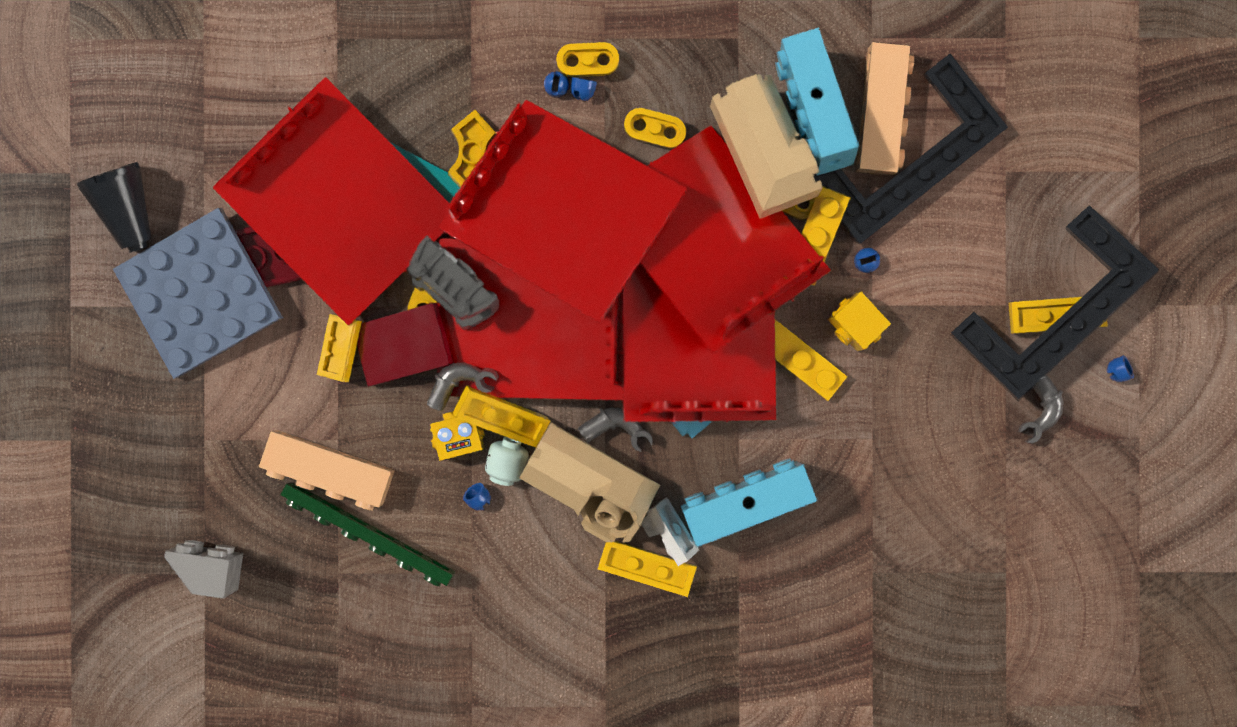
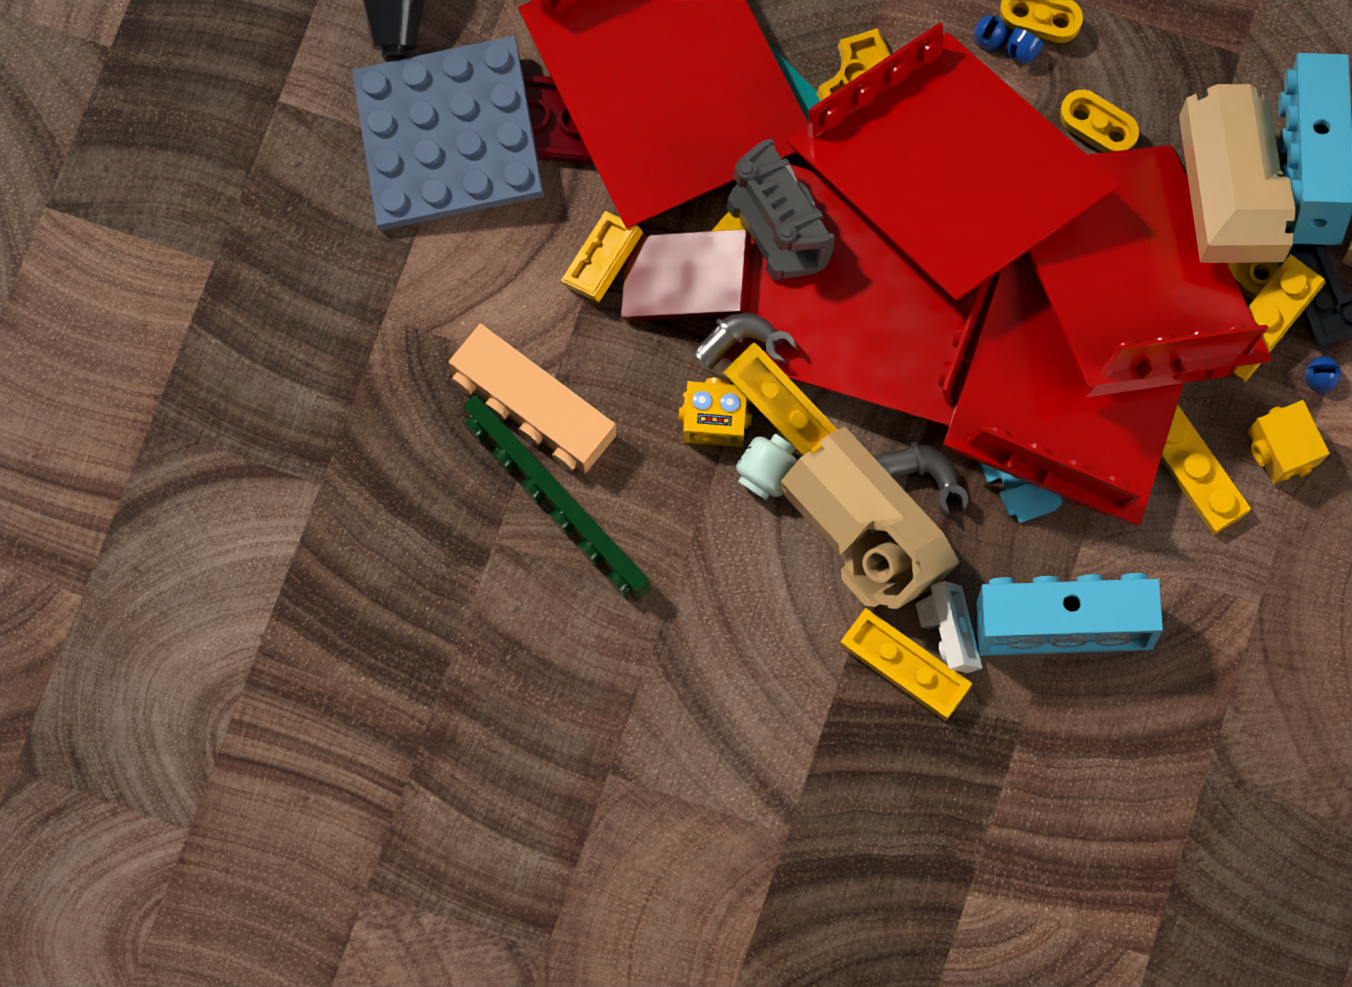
camera: 20 degrees right, 15 degrees down
(206, 570) = (339, 466): light grey slope -> none
(477, 496) = (713, 500): blue hinge -> none

